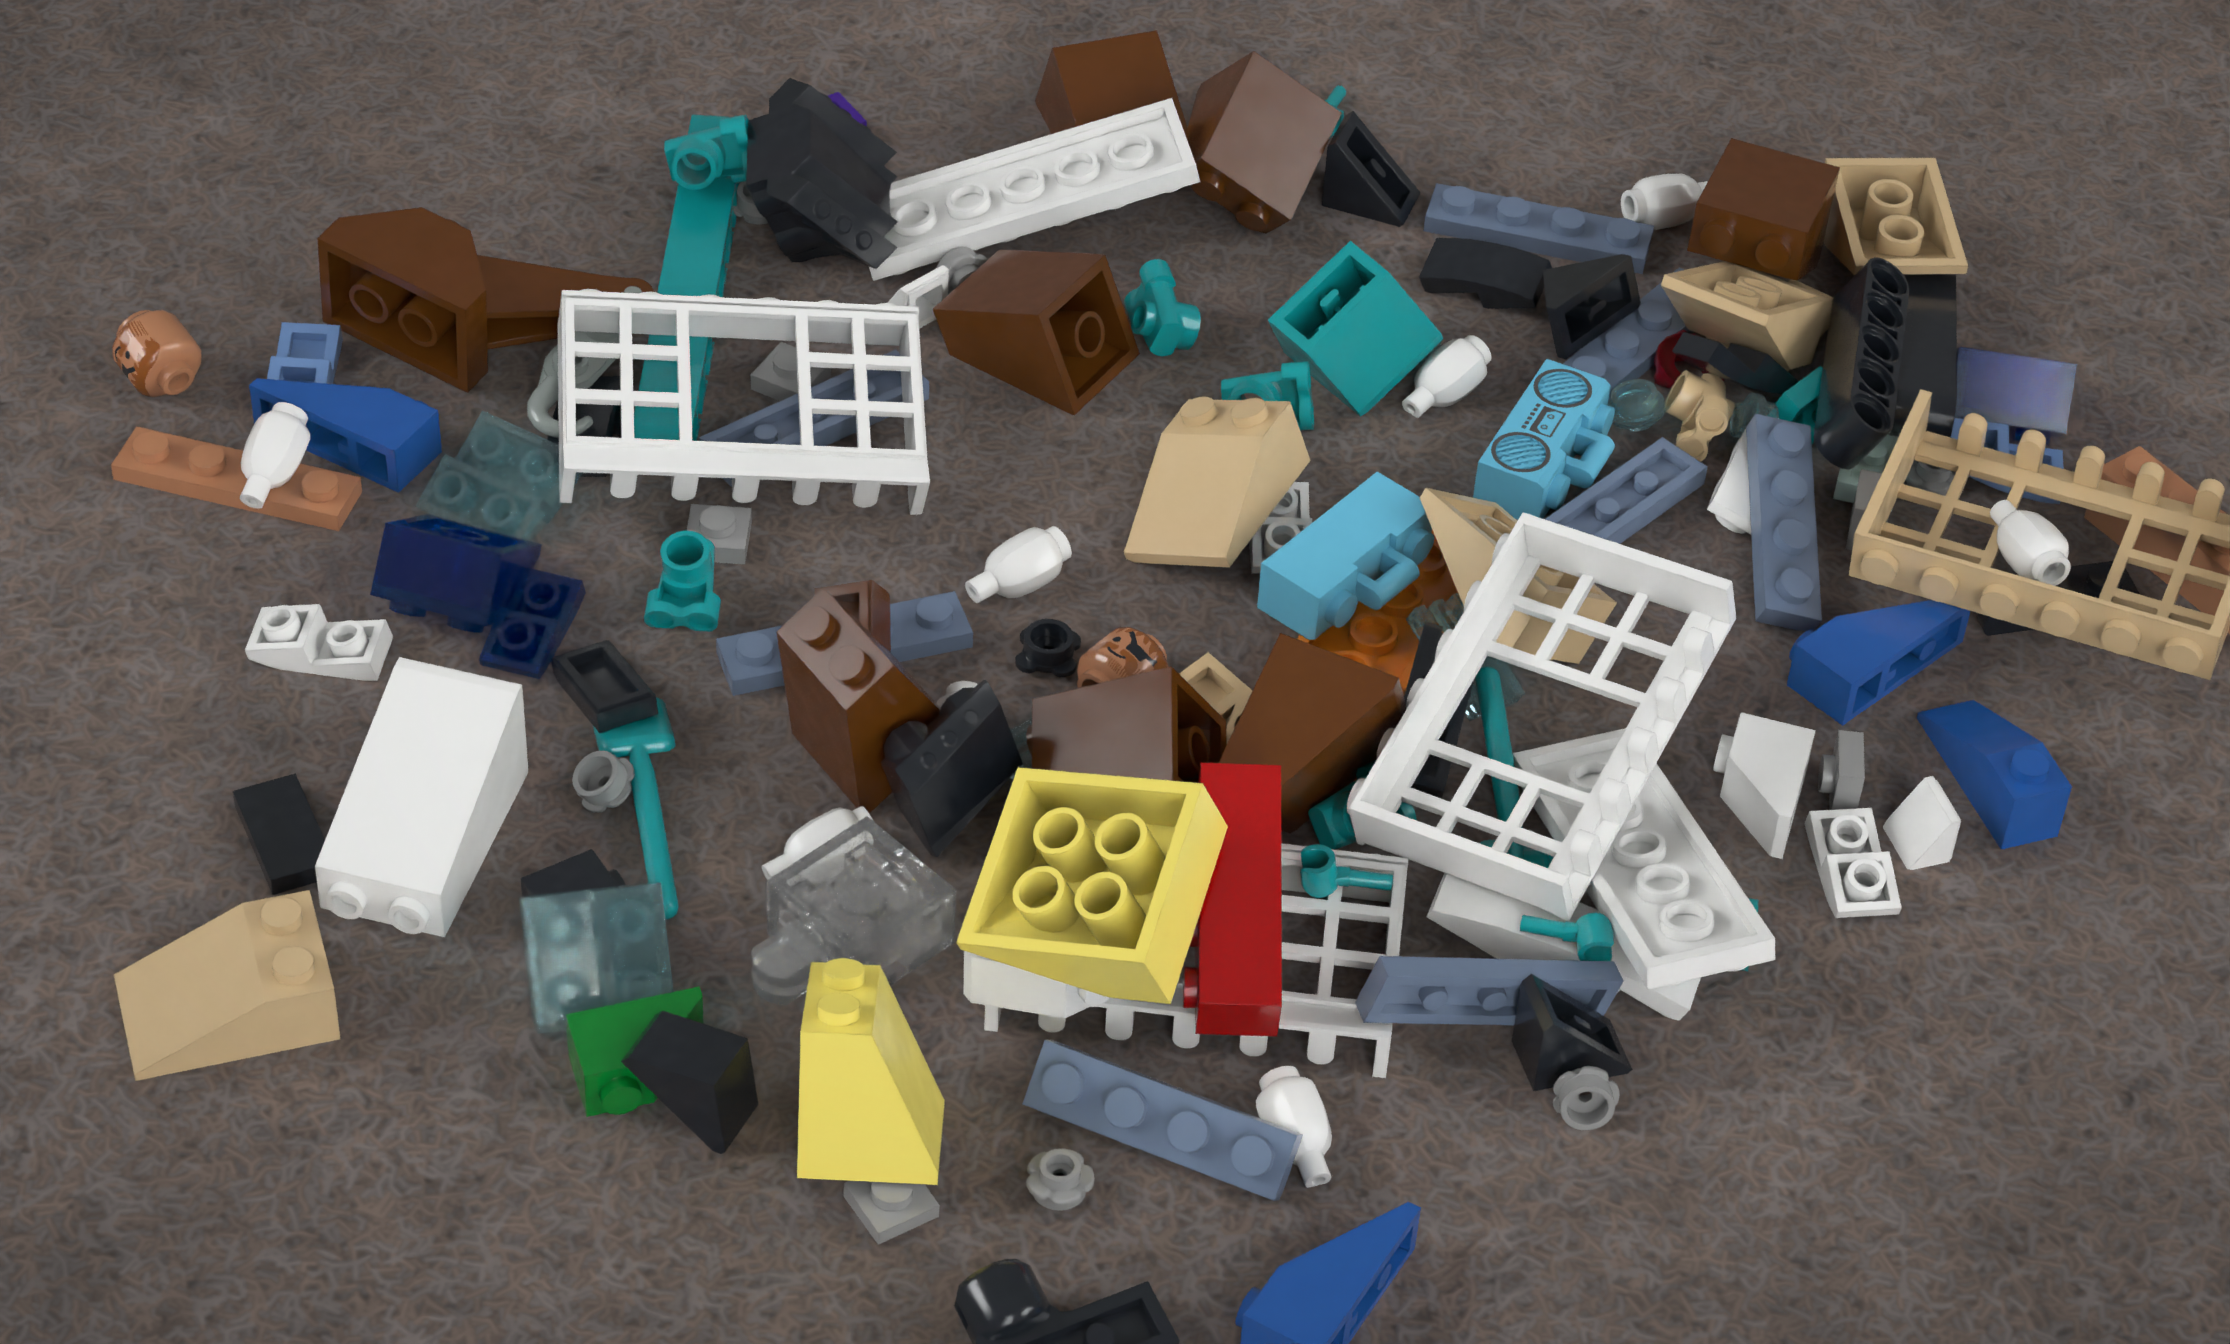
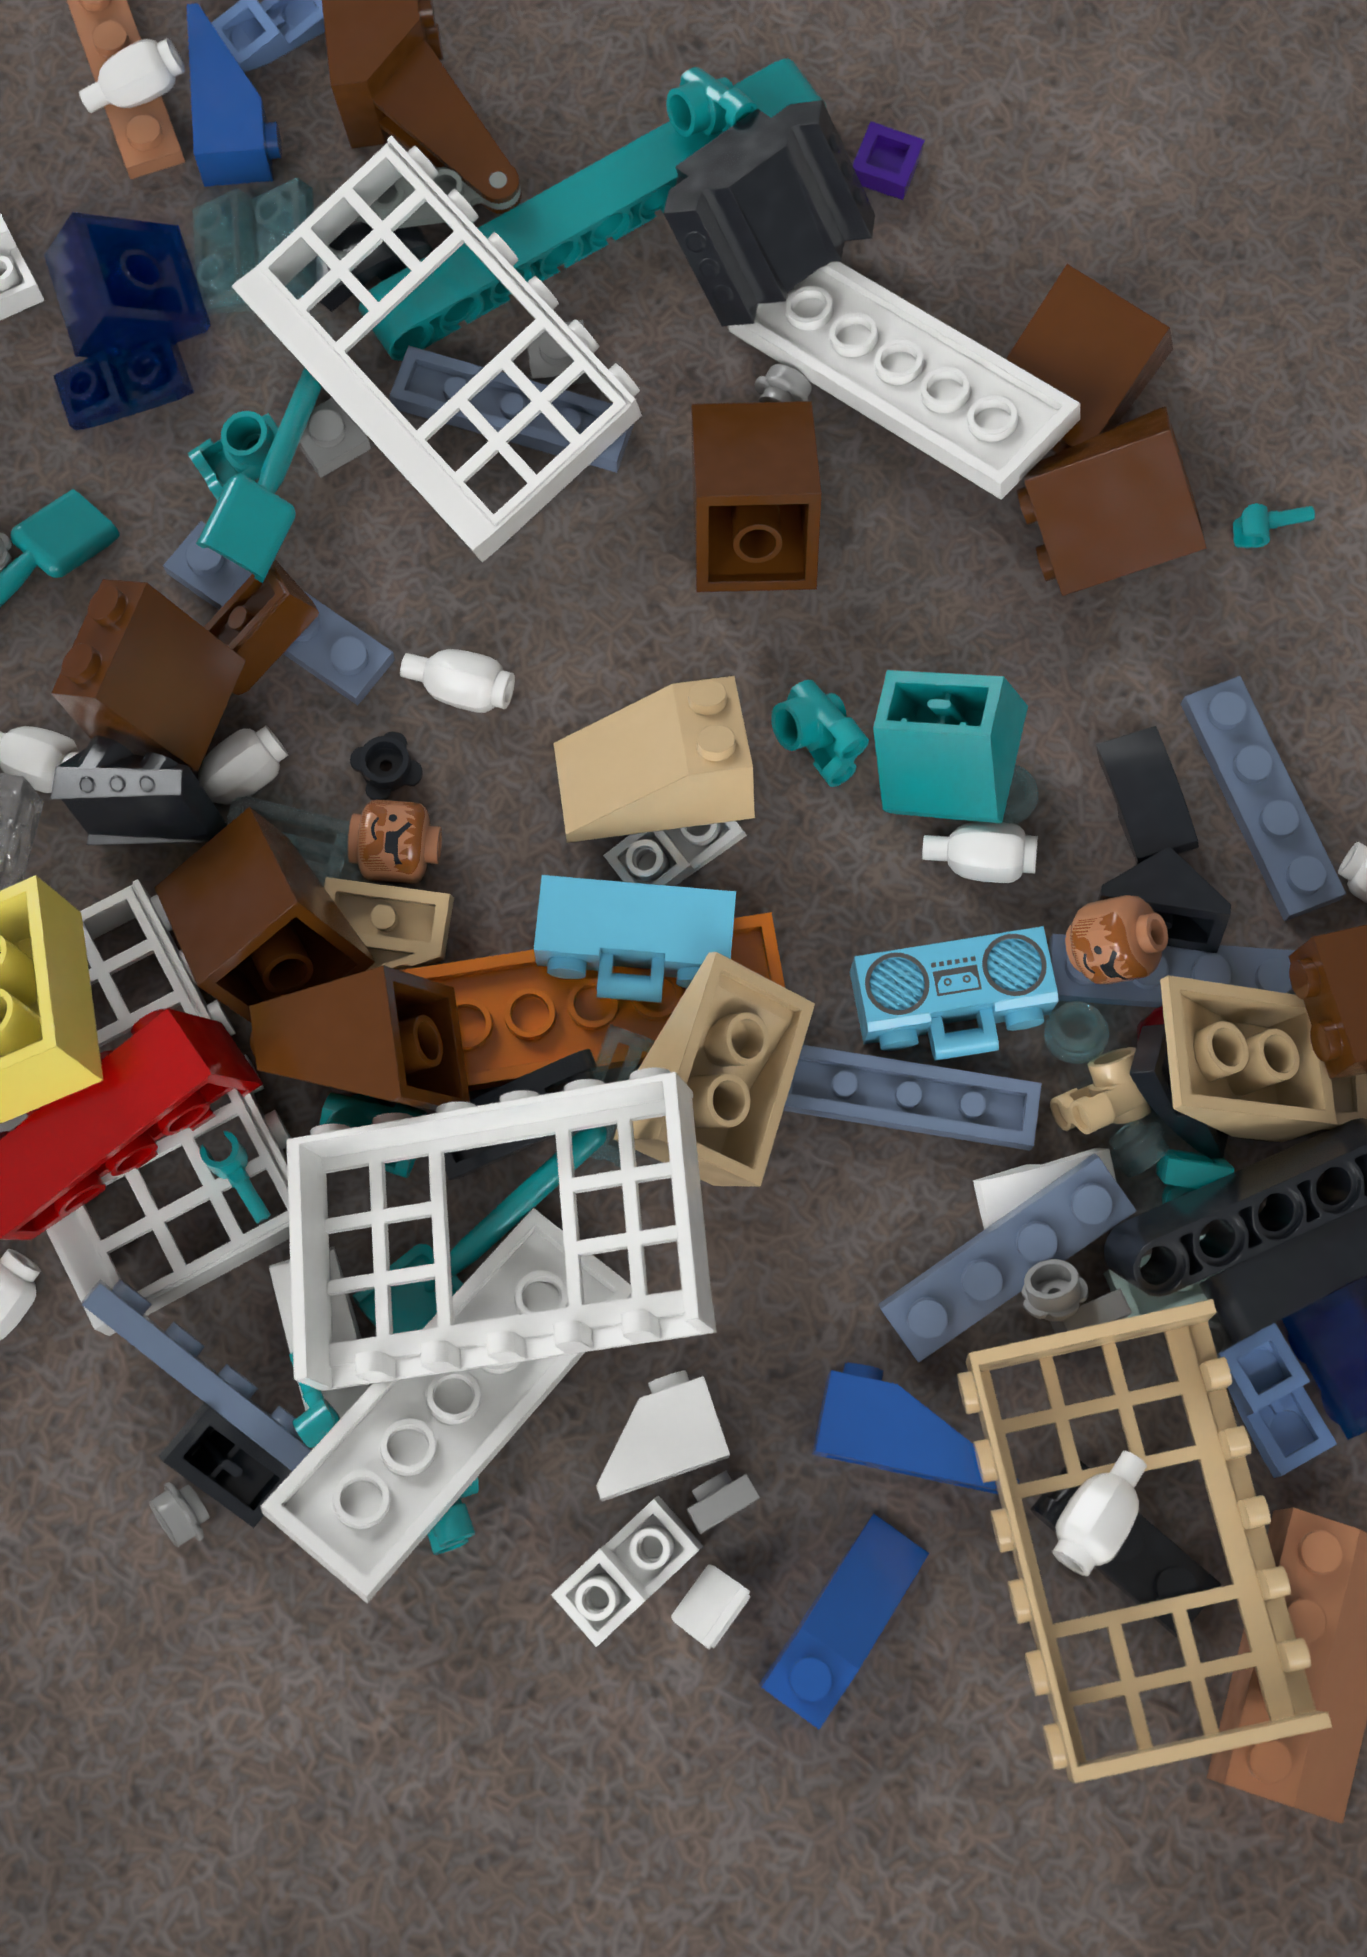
camera: 55 degrees right, 30 degrees up
(604, 686) = (84, 482): black tile -> none
(780, 562) = (249, 516): none -> teal piece
(924, 293) = (718, 384): white slope -> none
(1157, 313) = (849, 580): teal plate -> none
(1364, 176) = (1188, 616): black slope -> none
(1597, 319) = (1116, 940): none -> nougat head
(1835, 496) = (1053, 1290): none -> light grey plate

